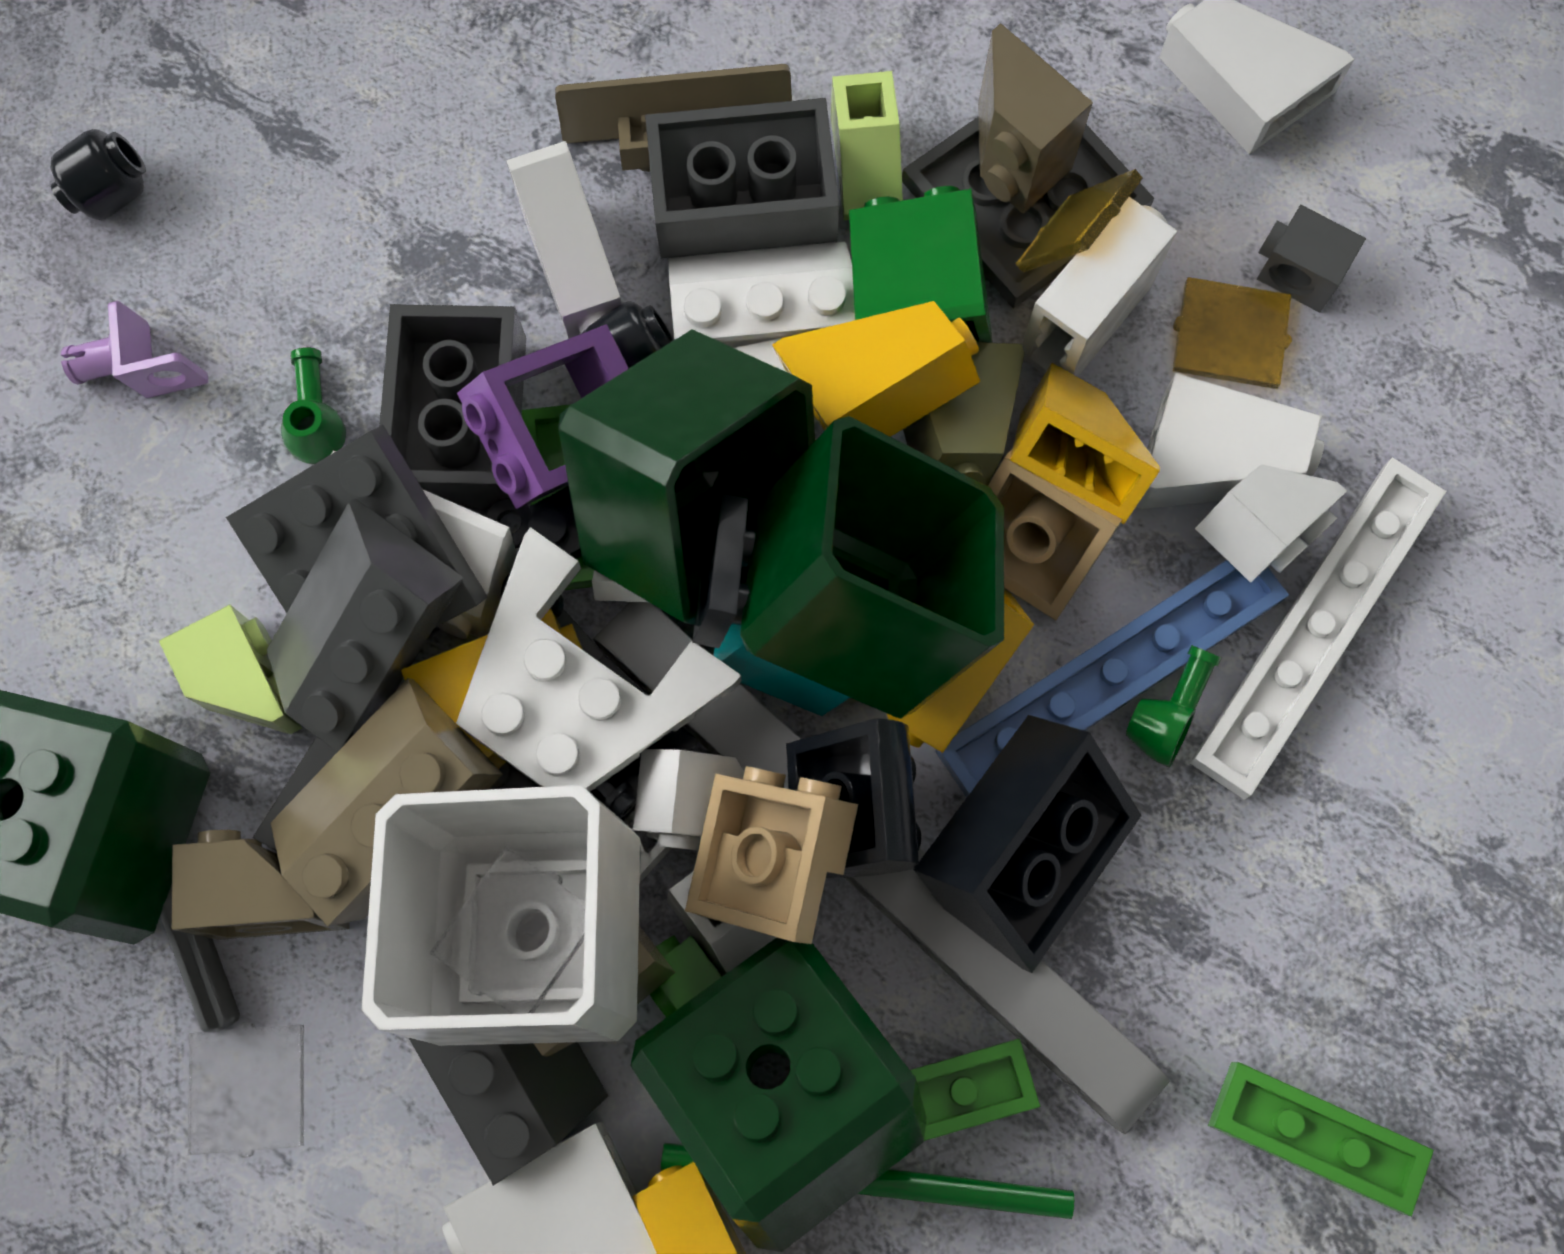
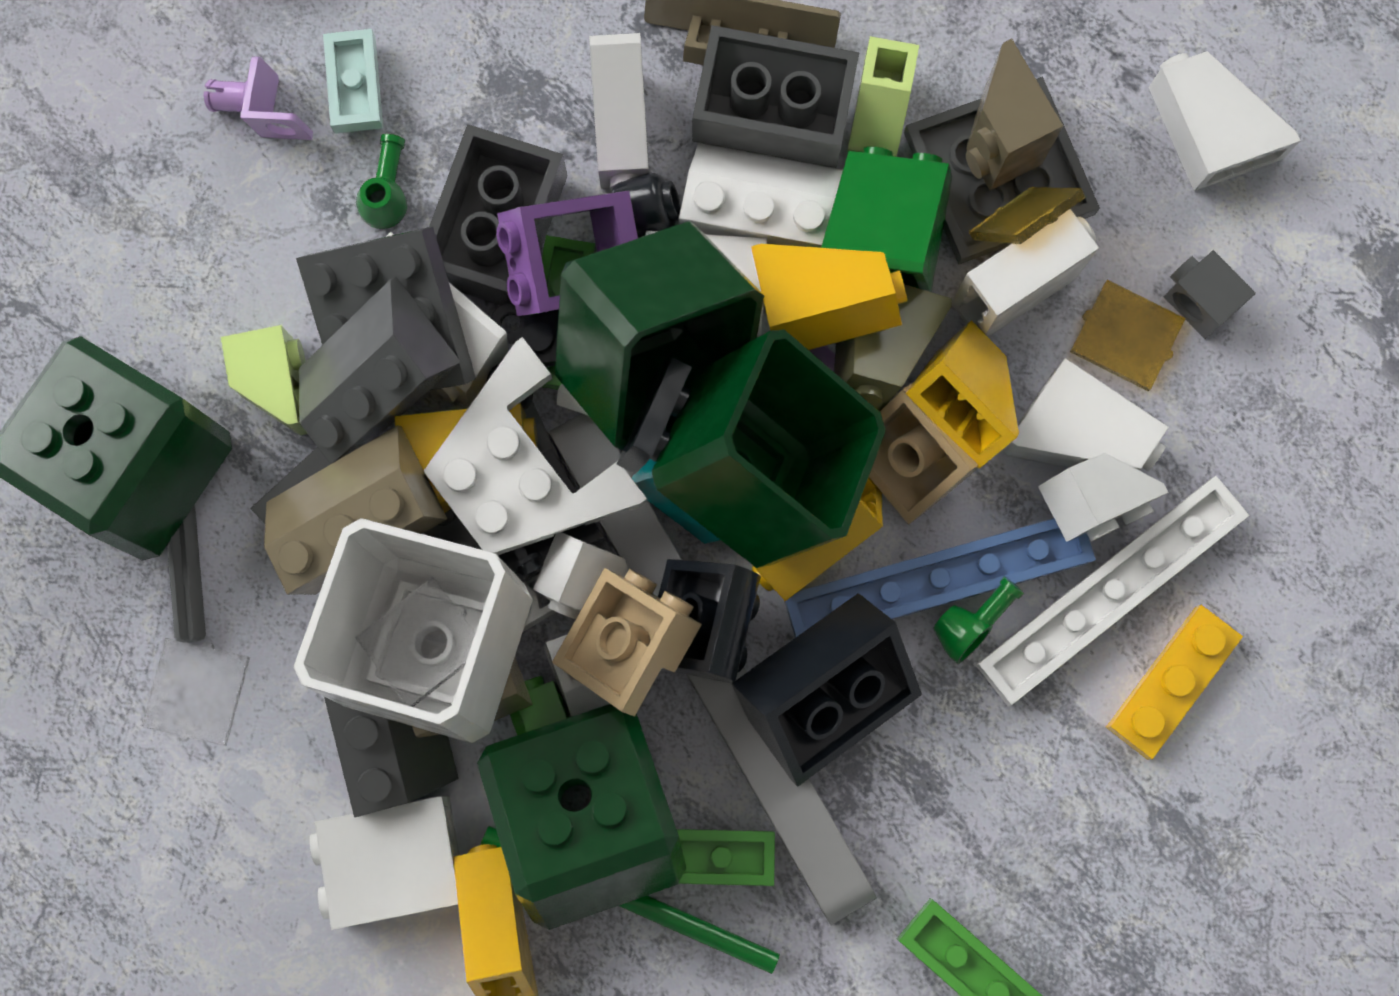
camera: 15 degrees right, 5 degrees up
(235, 891) = (226, 543): dark tan slope -> none
(239, 301) = (353, 81): none -> light aqua plate
(1427, 712) = (1174, 682): none -> yellow plate

